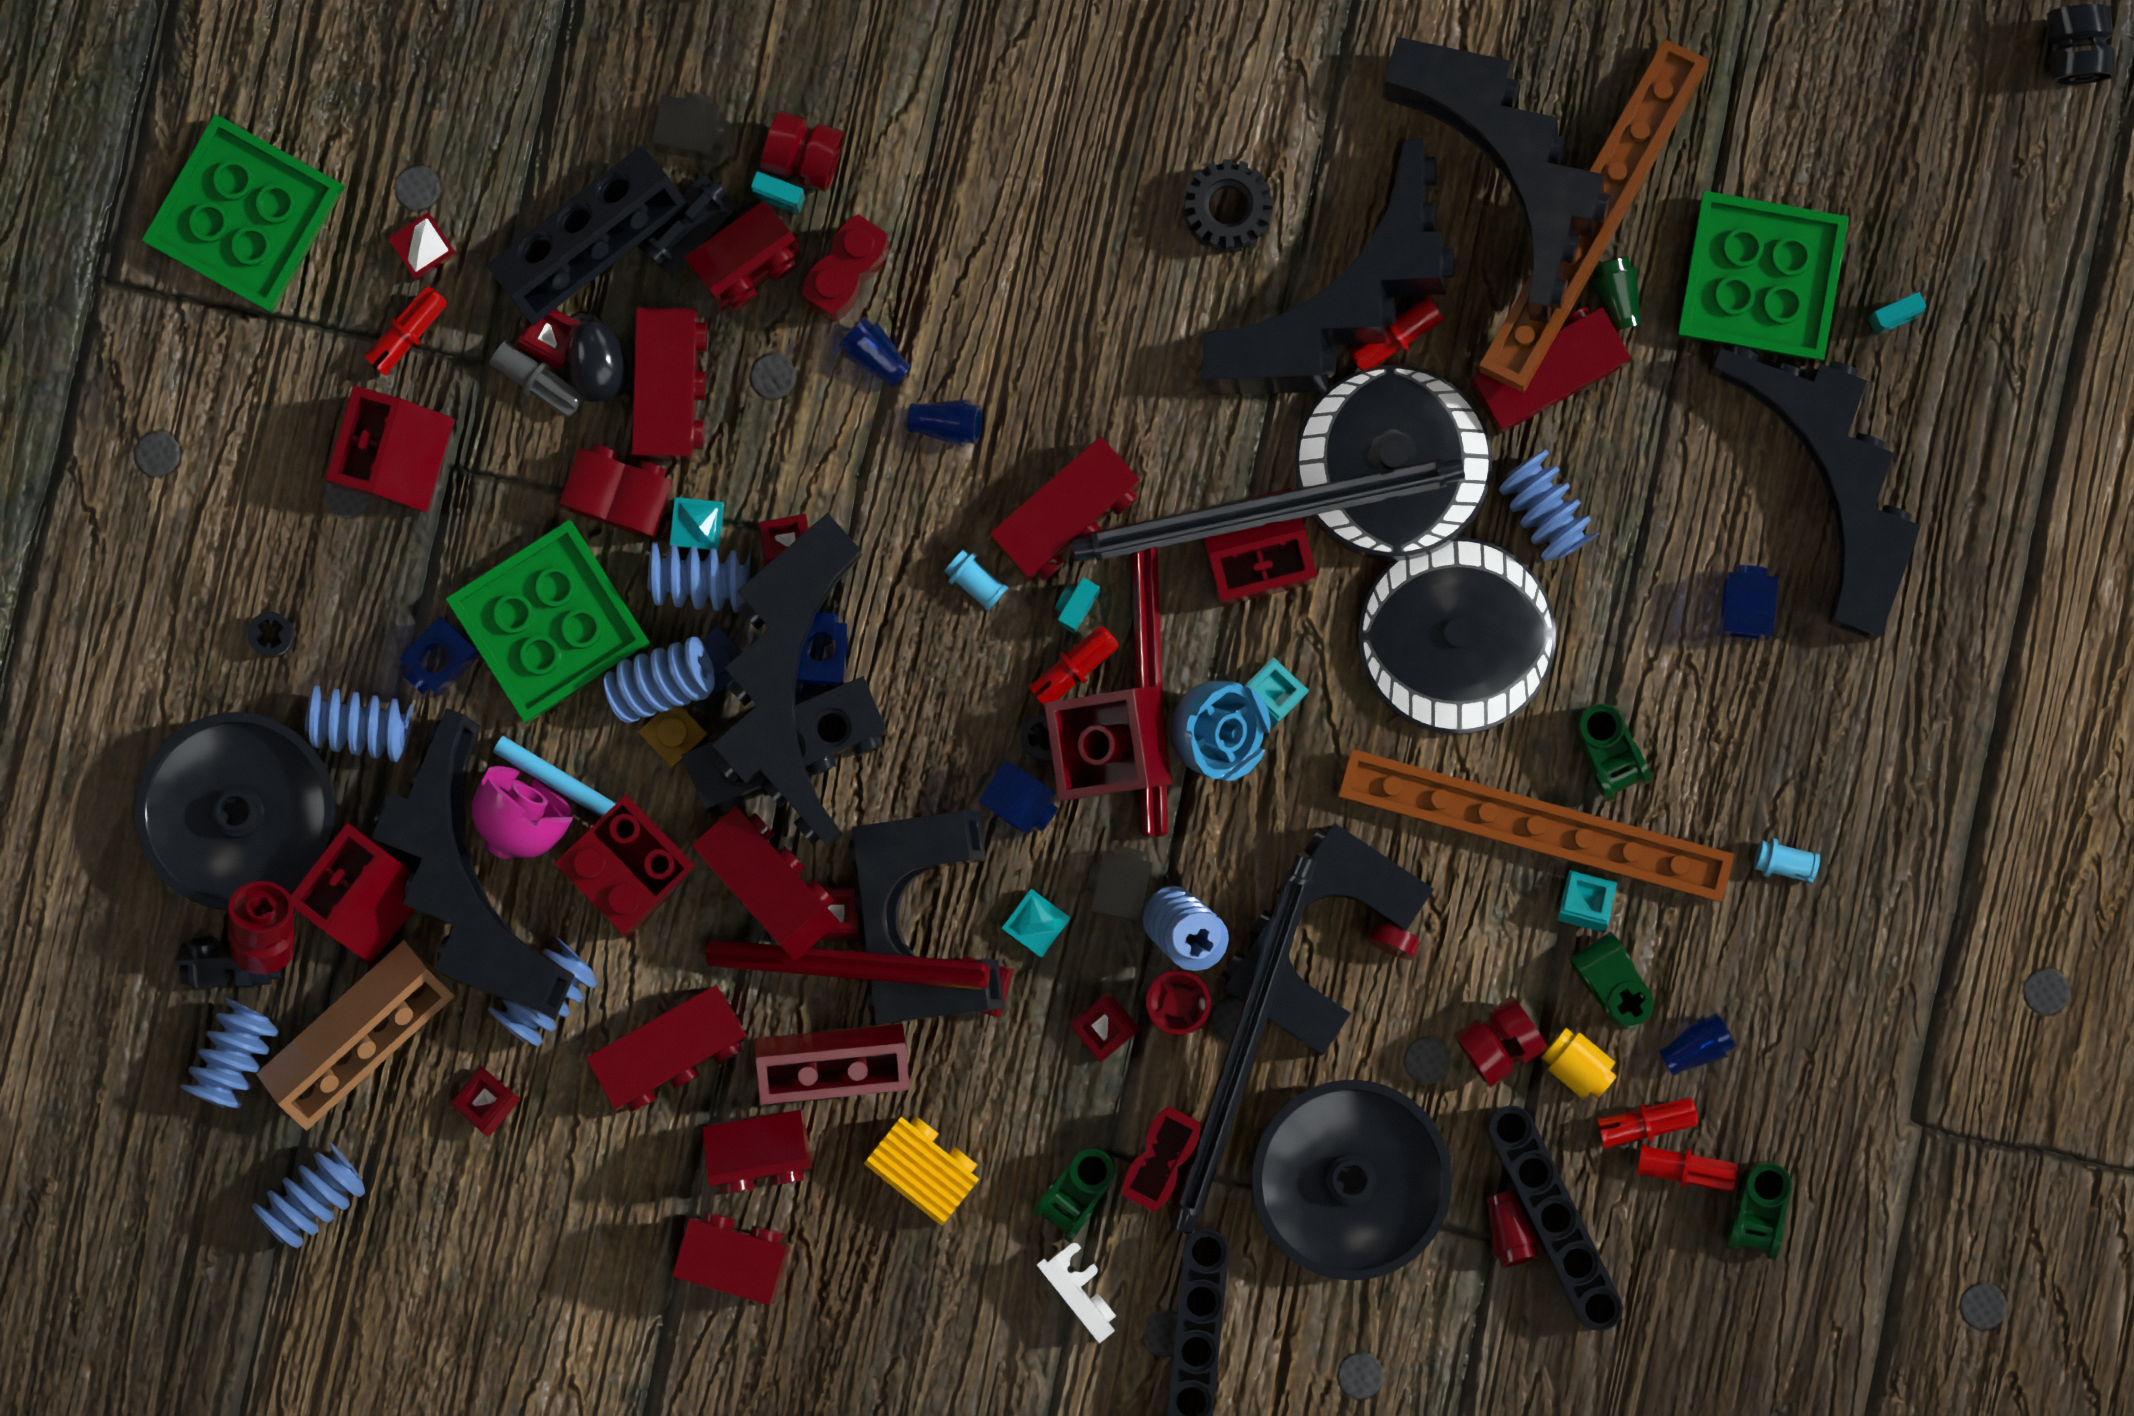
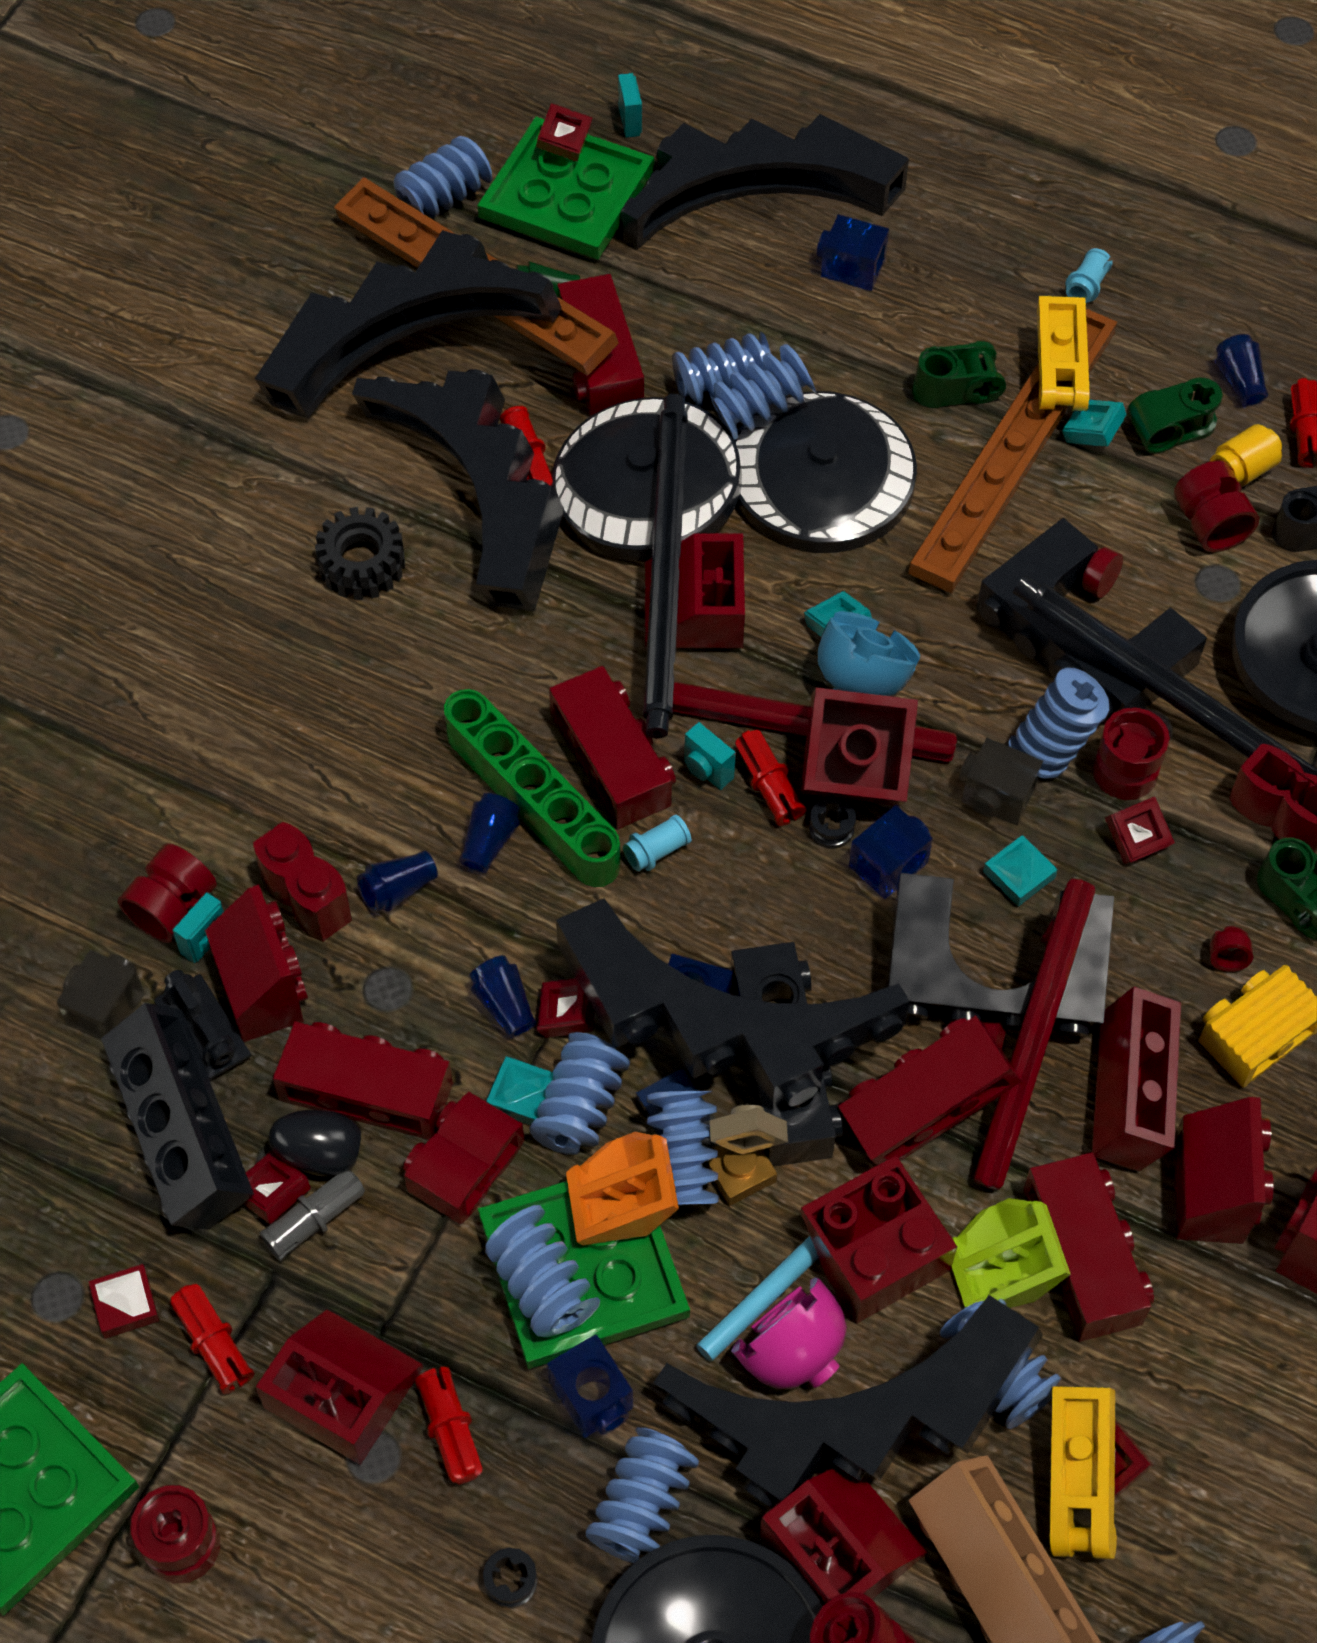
camera: 80 degrees left, 25 degrees down
(232, 359) = (175, 1534): none -> dark red wheel
(380, 550) = (449, 1425): none -> red axle
(463, 1077) = (1083, 1470): none -> yellow plate
(512, 588) = (536, 1275): none -> medium blue piece
(610, 635) = (622, 1189): none -> orange slope
(643, 978) = (1009, 1254): none -> lime slope
(683, 732) = (748, 1129): none -> dark tan plate
(782, 482) = (502, 993): none -> clear blue cone
(999, 1131) = (1223, 951): none -> dark red hinge
(1009, 424) = (539, 806): none -> green beam
(1507, 553) = (761, 390): none -> medium blue piece
(1651, 850) = (1062, 352): none -> yellow plate
(1726, 141) = (443, 176): none -> medium blue piece
(1819, 256) = (564, 132): none -> dark red tile

